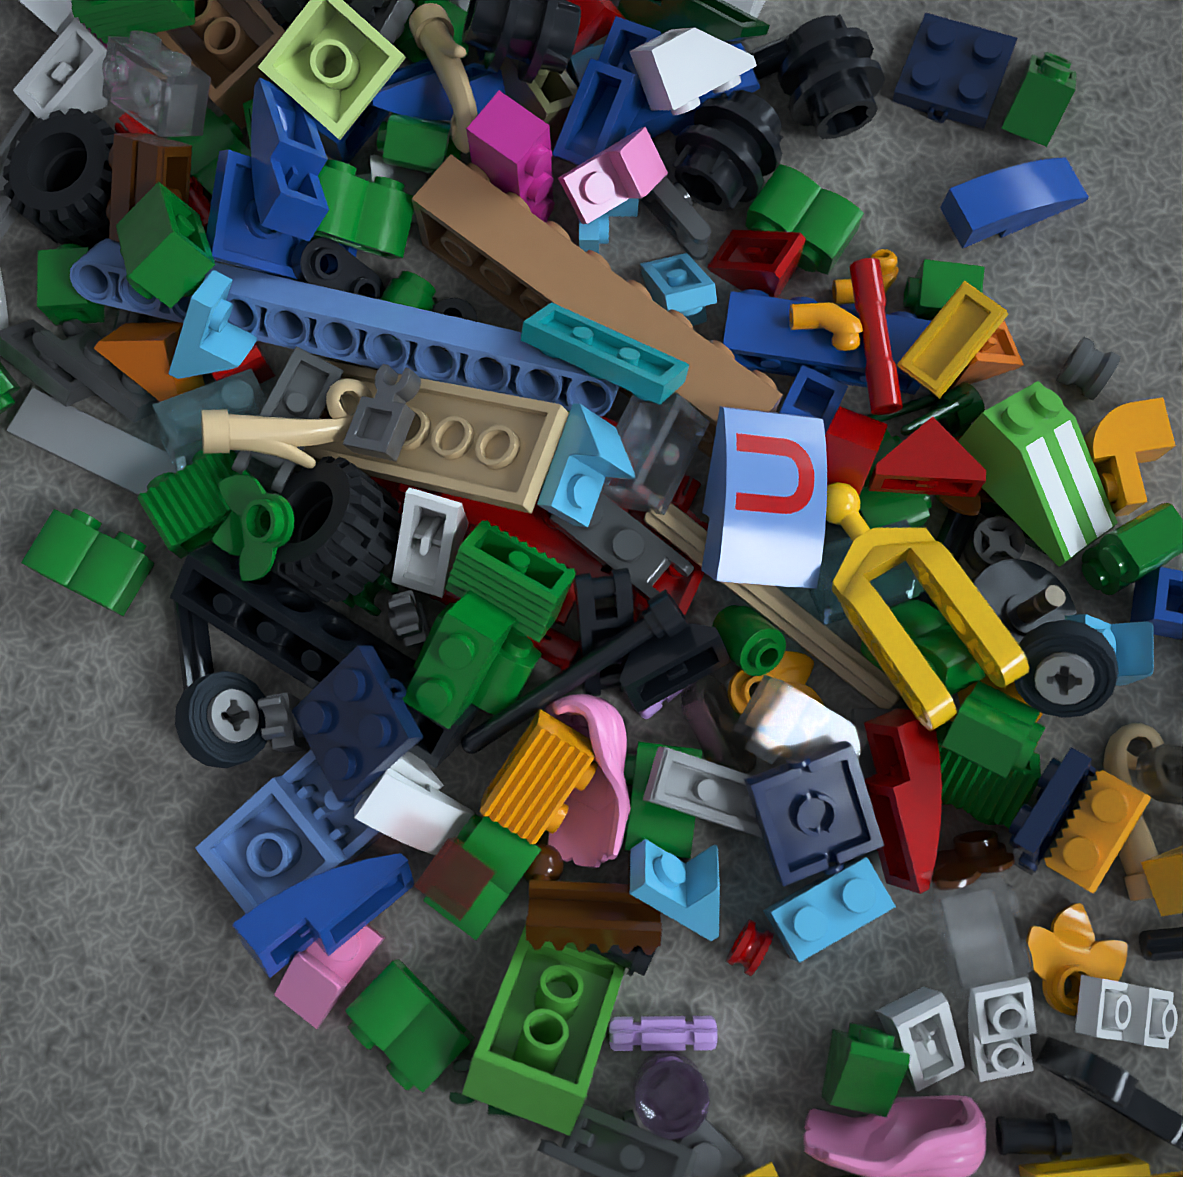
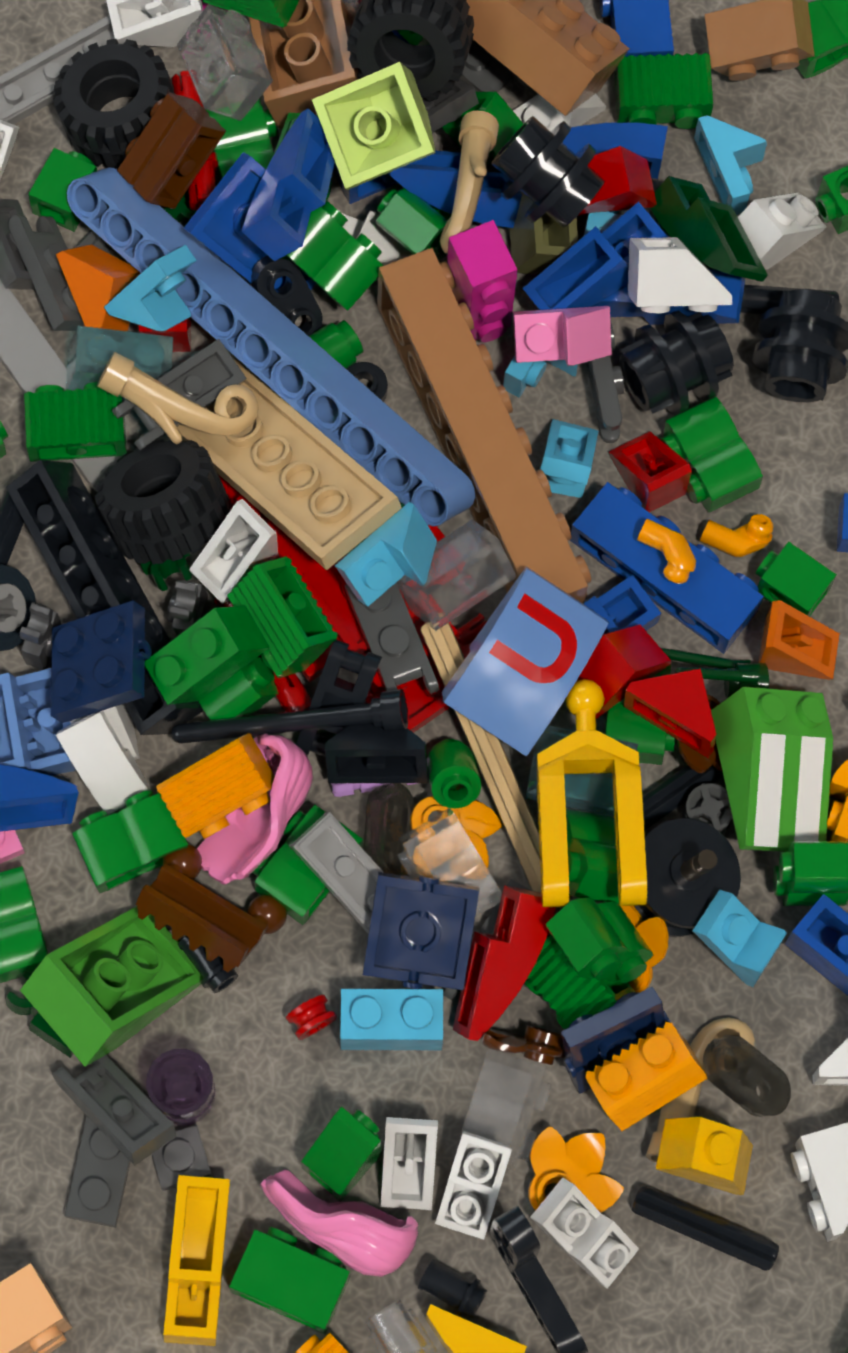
camera: 25 degrees right, 5 degrees down
(164, 247) = (157, 206): green brick -> none
(254, 526) = (105, 466): green plate -> none
(384, 421) = (255, 436): flat silver plate -> none
(455, 878) = (107, 820): clear red panel -> none
(604, 353) = (459, 474): teal plate -> none
(662, 1033) = (209, 1046): lavender axle -> none
(676, 888) = (282, 940): medium azure slope -> none
(880, 367) = (691, 609): red piece -> none
(952, 339) = (761, 617): yellow tile -> none
(1067, 648) = (702, 917): black wheel -> none

